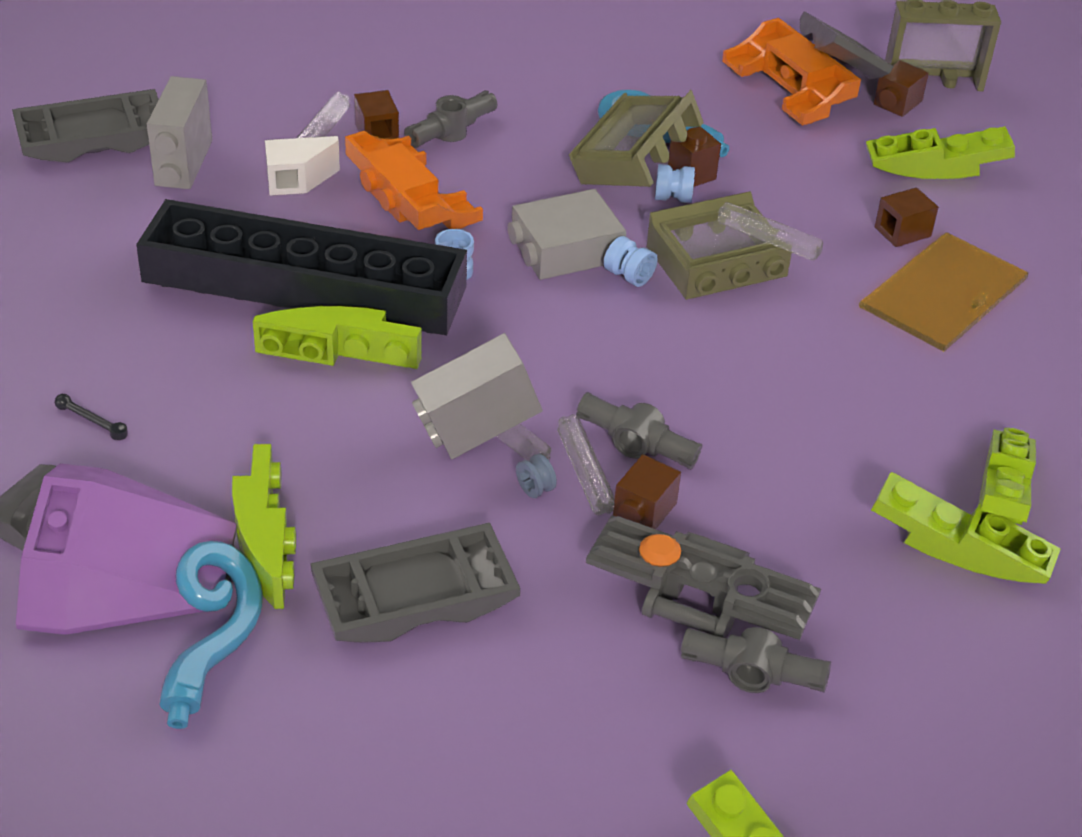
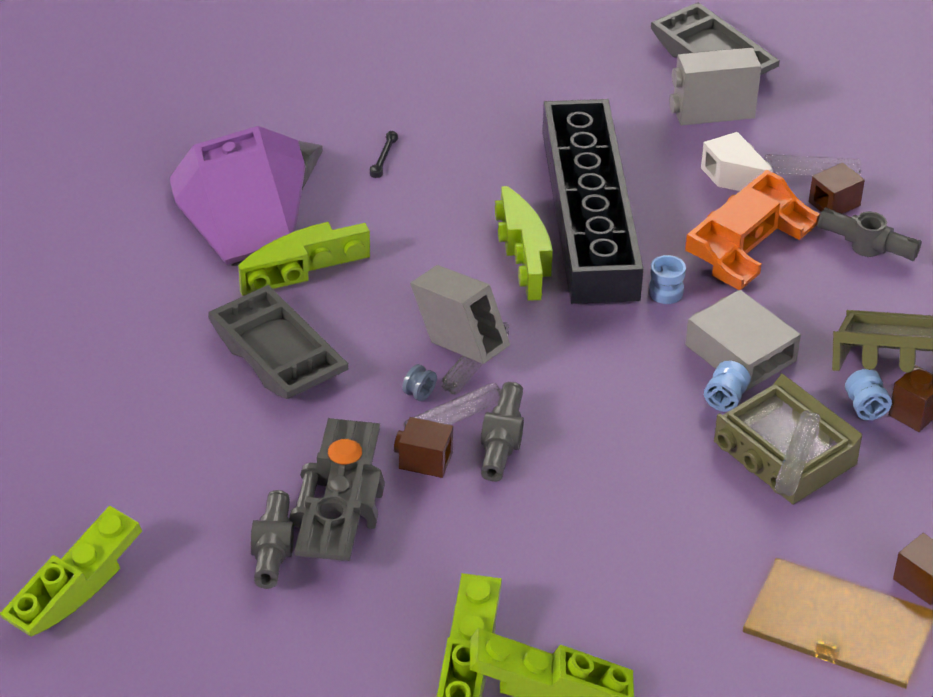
camera: 75 degrees right, 0 degrees up
(186, 678) = (153, 259): dark azure plant -> none

